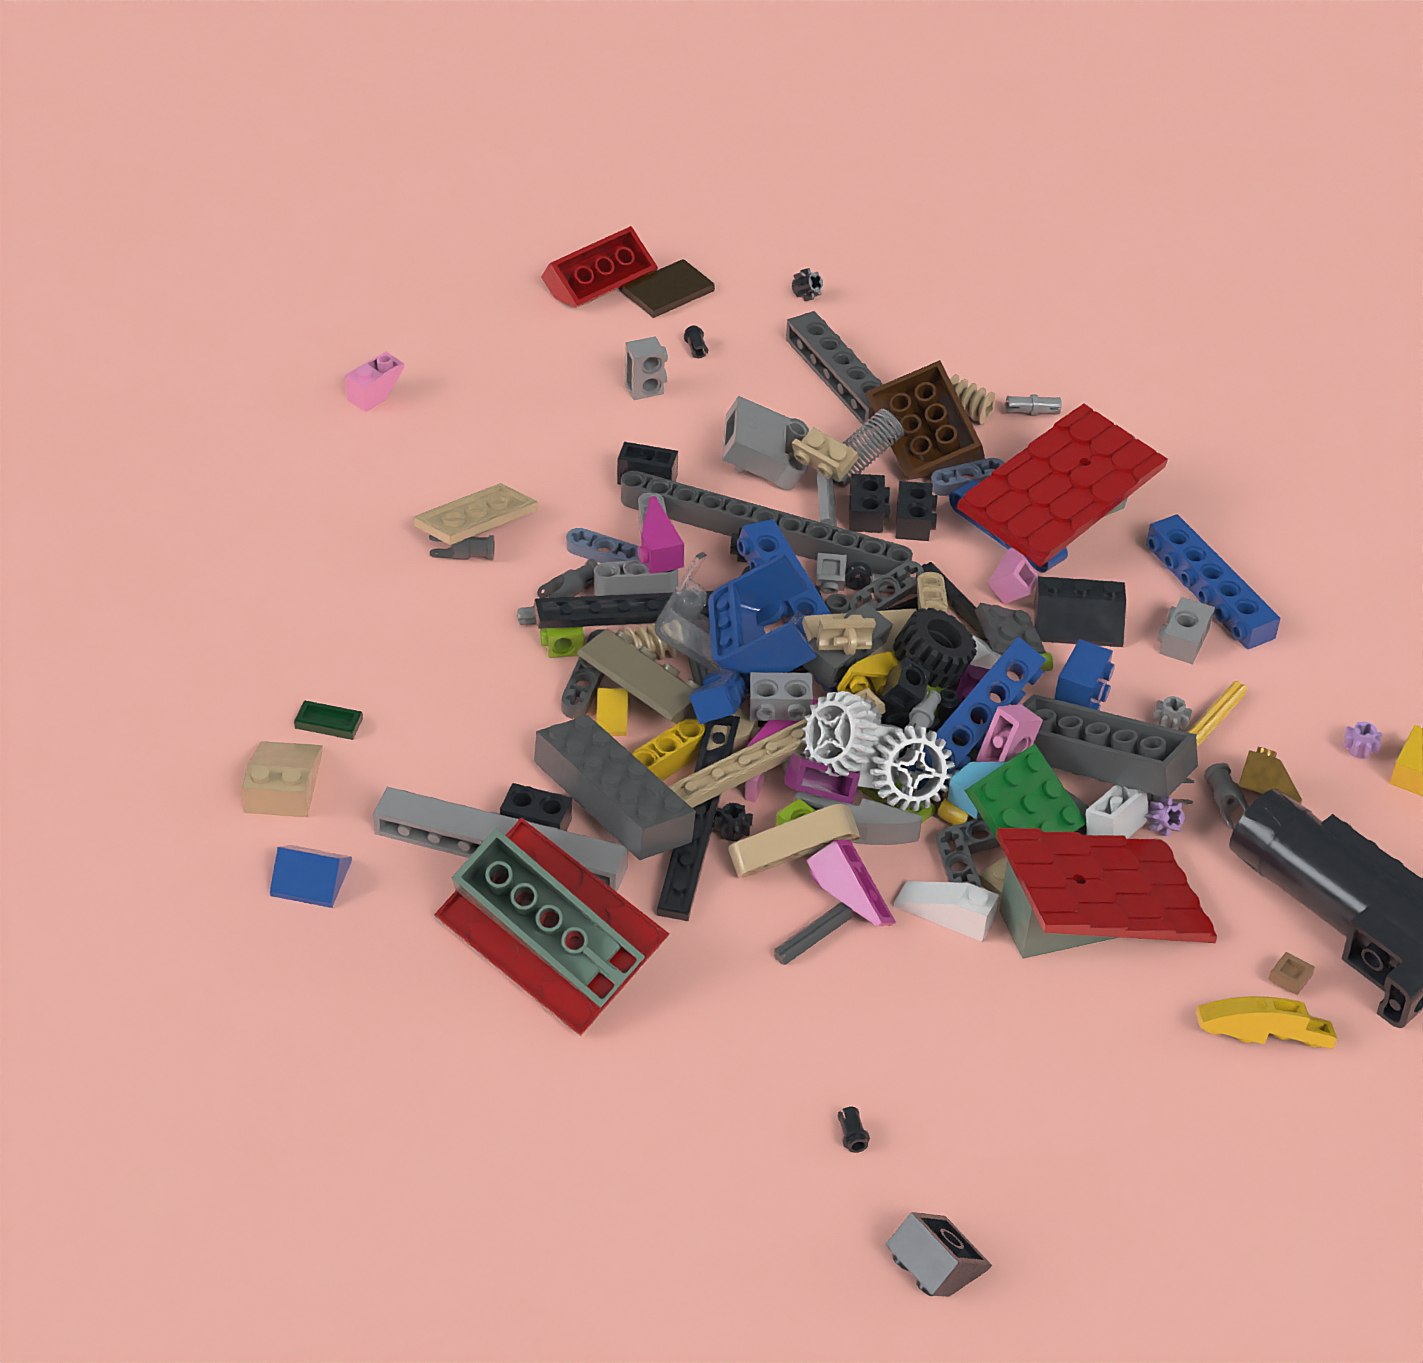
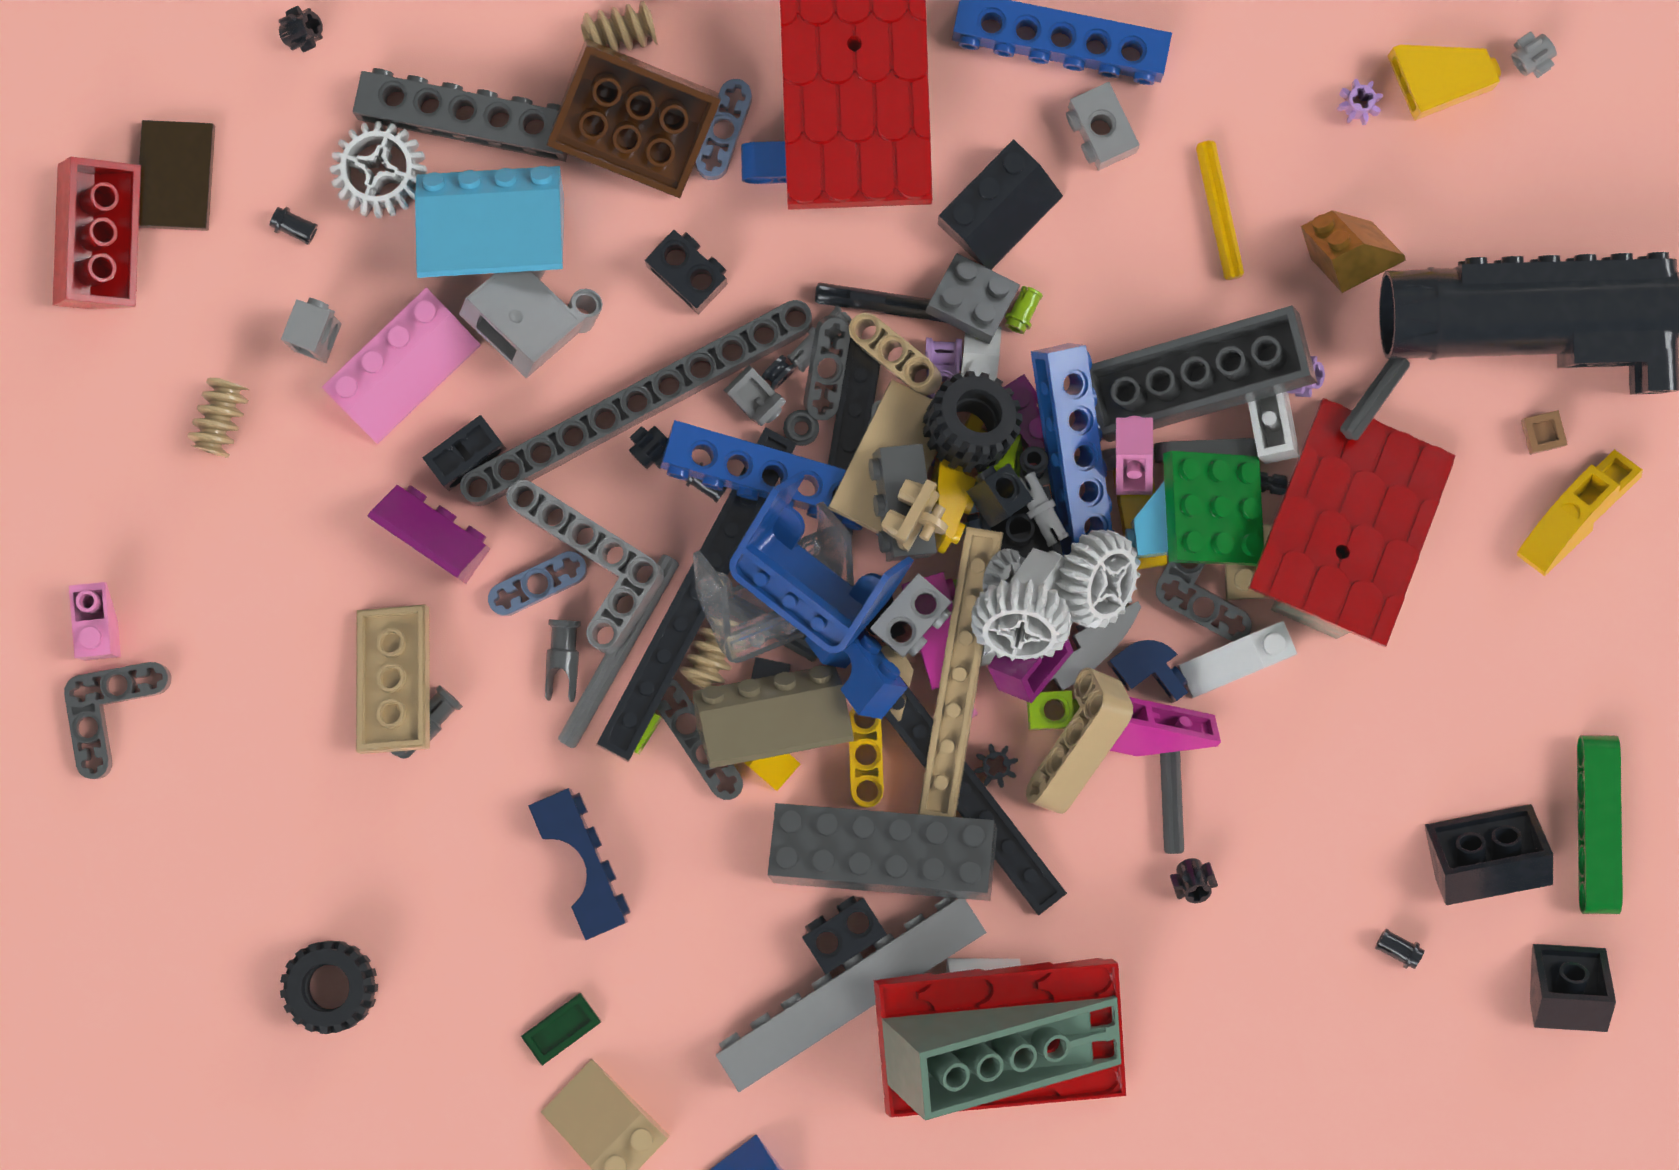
camera: 45 degrees left, 40 degrees up
(249, 590) = (298, 993): none -> black tyre
(327, 407) = (94, 708): none -> dark grey beam
(430, 684) = (598, 906): none -> dark blue arch
(551, 364) = (217, 416): none -> tan piece
(583, 480) = (431, 531): none -> magenta slope
(660, 542) = (615, 559): dark pink slope -> none
(668, 418) = (401, 365): none -> bright pink slope
(768, 353) = (383, 155): none -> white gear
(779, 972) = (1193, 880): none -> black gear
(797, 396) = (489, 221): none -> medium azure slope
(825, 454) = (610, 275): tan bracket -> none
(826, 500) = (652, 310): light grey tile -> none
(876, 439) = (619, 262): light grey piece -> none
(888, 855) = (1148, 658): none -> dark blue brick
(915, 511) = (728, 240): black brick -> none
(975, 1137) = (1489, 854): none -> black slope
(1013, 577) = (909, 229): bright pink slope -> none
(1073, 1190) = (1599, 824): none -> green beam
(1086, 676) = (1103, 304): blue brick -> none
(1172, 713) = (1196, 254): light grey gear -> none
(1198, 860) = (1374, 398): none -> dark grey axle
(1226, 792) = (1319, 290): light grey piece -> none

